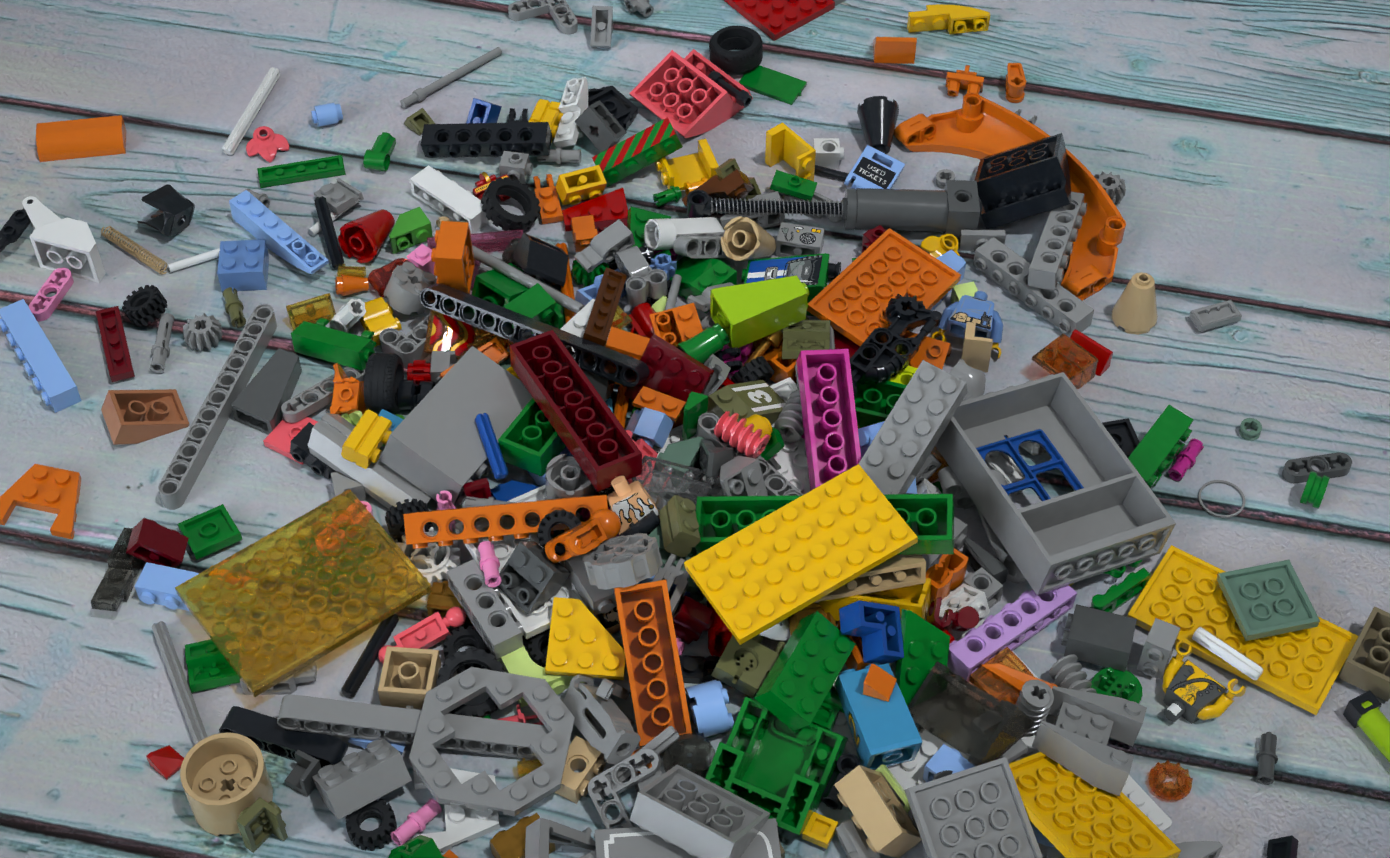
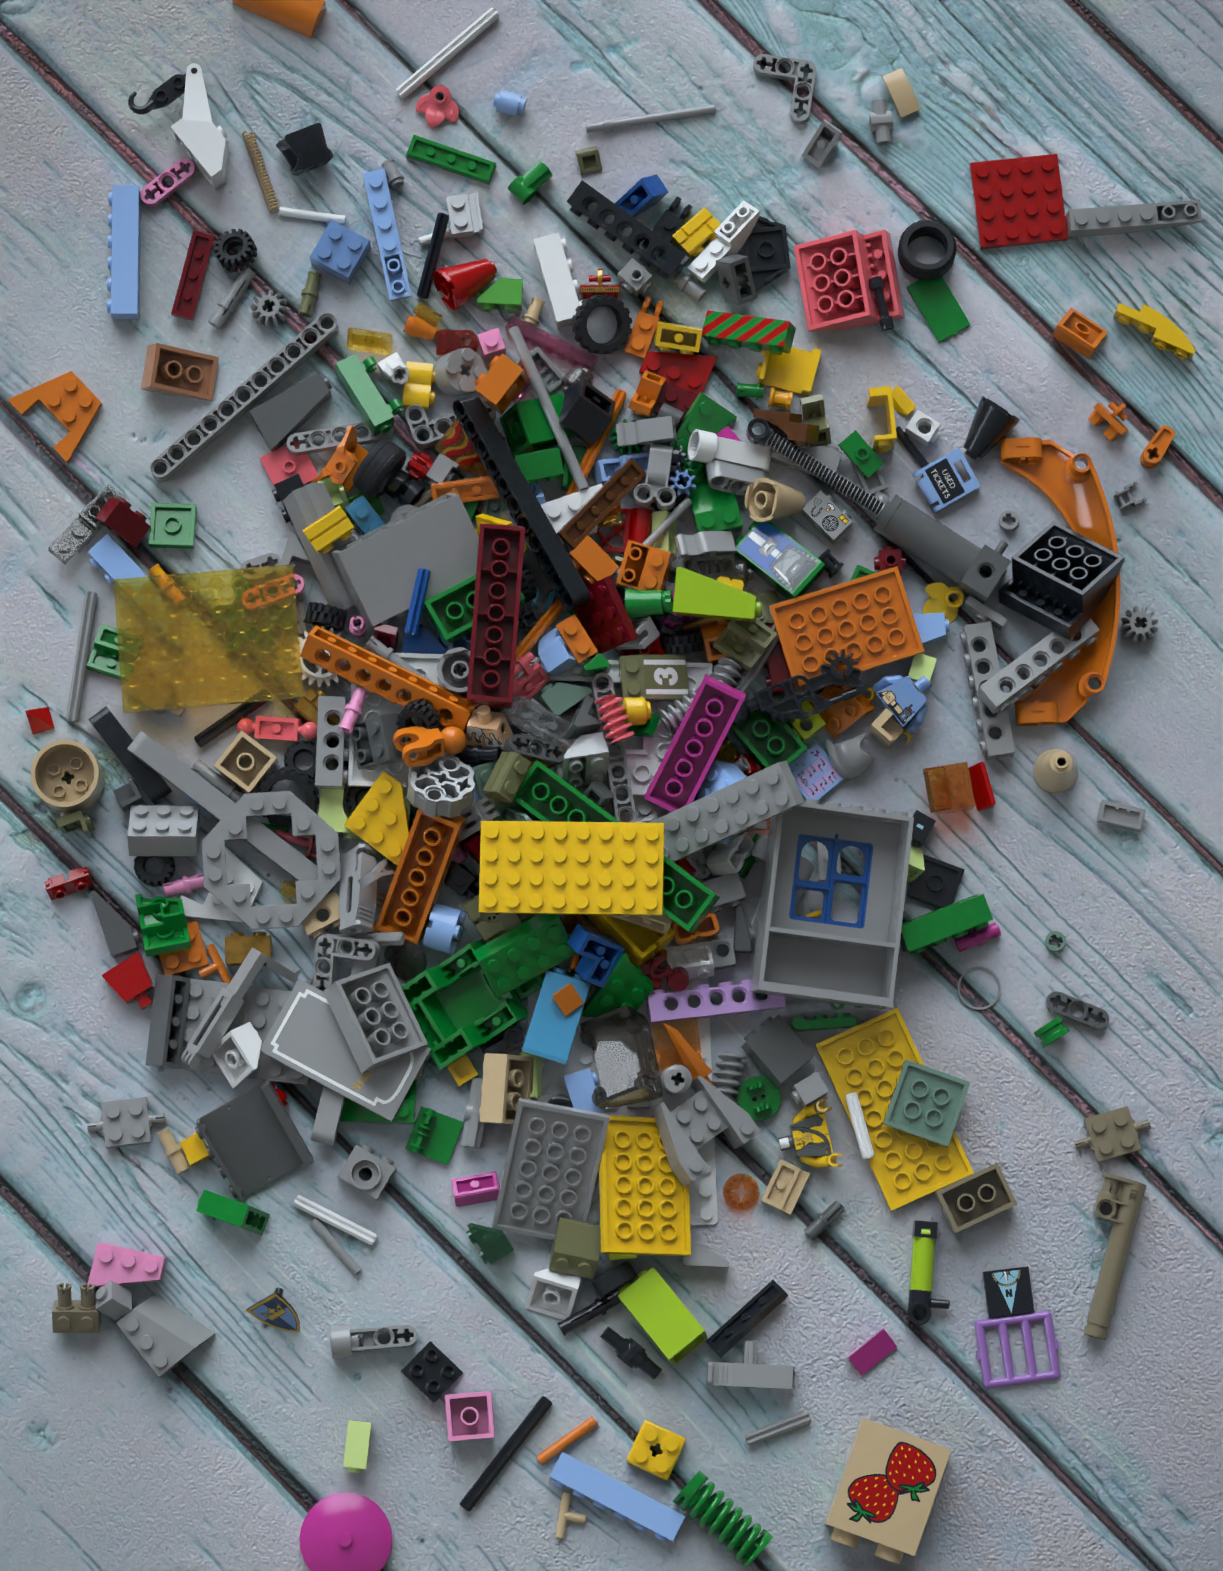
camera: 30 degrees right, 30 degrees up
(1206, 750) = (785, 1187): none -> tan plate

